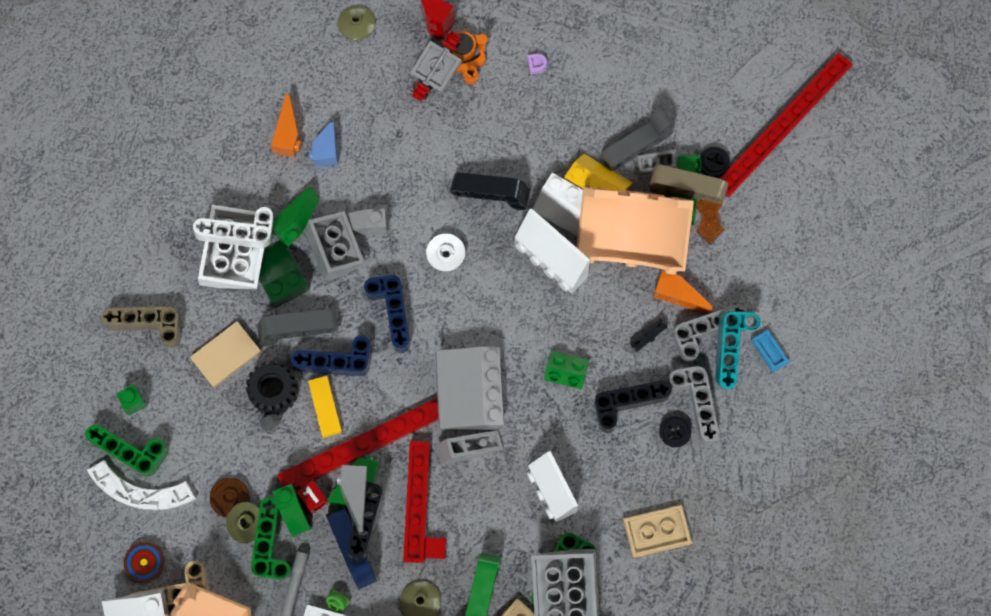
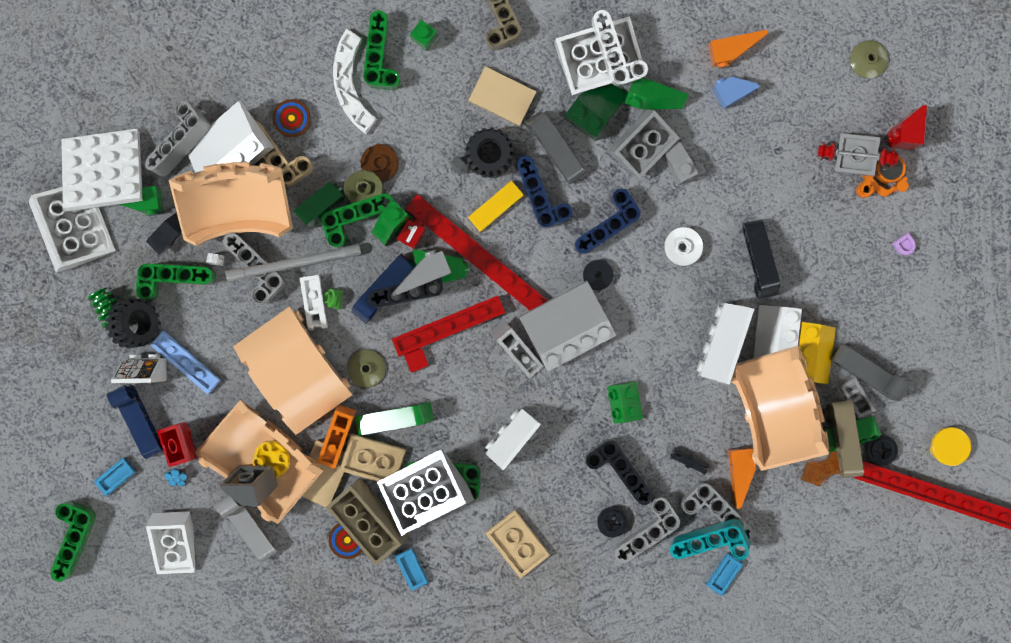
camera: 60 degrees right, 15 degrees up
(239, 571) = (319, 203): none -> dark green slope
(430, 334) = (606, 274): none -> black piece
(737, 101) = (950, 446): none -> yellow tile

